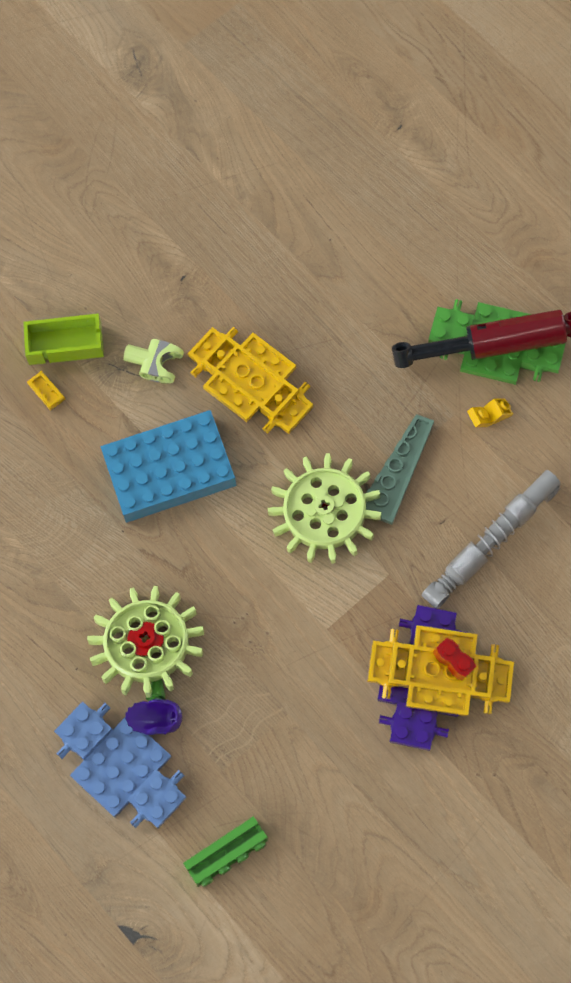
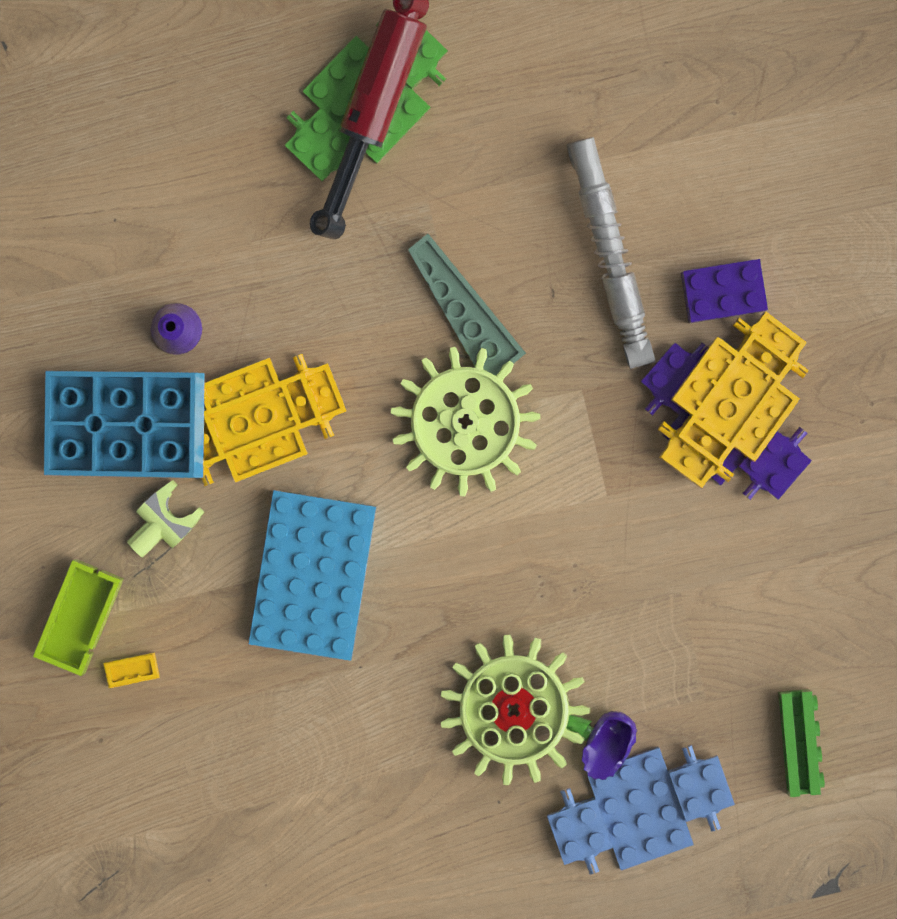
camera: 65 degrees left, 20 degrees up
(203, 300) = (124, 424): none -> dark azure brick
(282, 304) = (187, 330): none -> dark purple cone
(450, 655) = (739, 380): red brick -> none
(491, 413) = (452, 161): yellow slope -> none
(510, 627) = (724, 291): none -> dark purple brick

